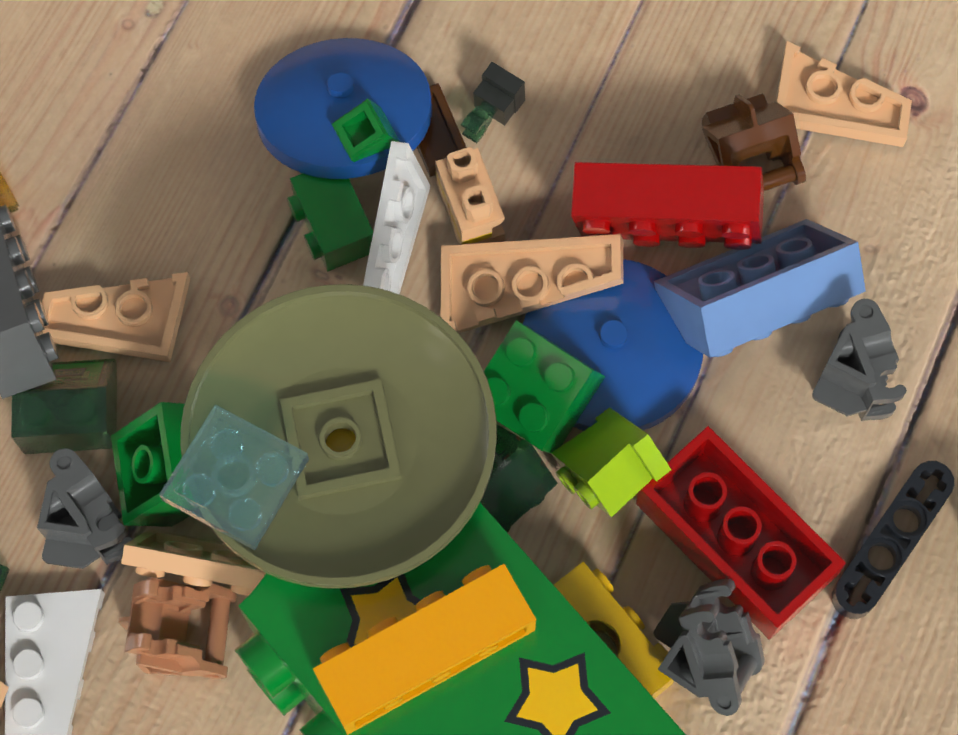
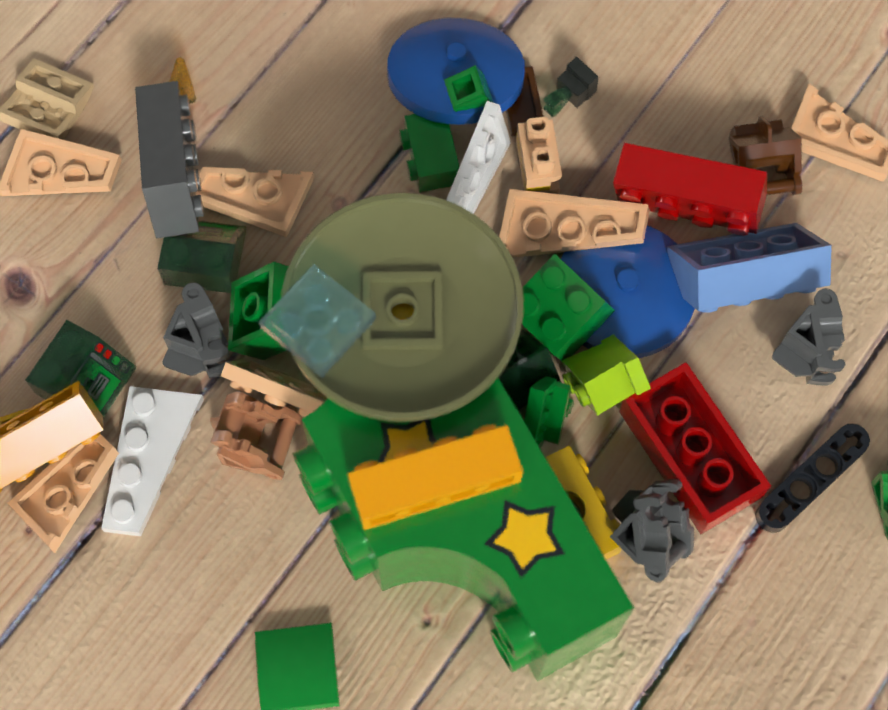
camera: 10 degrees right, 0 degrees up
(546, 522) = (547, 410): none -> green slope

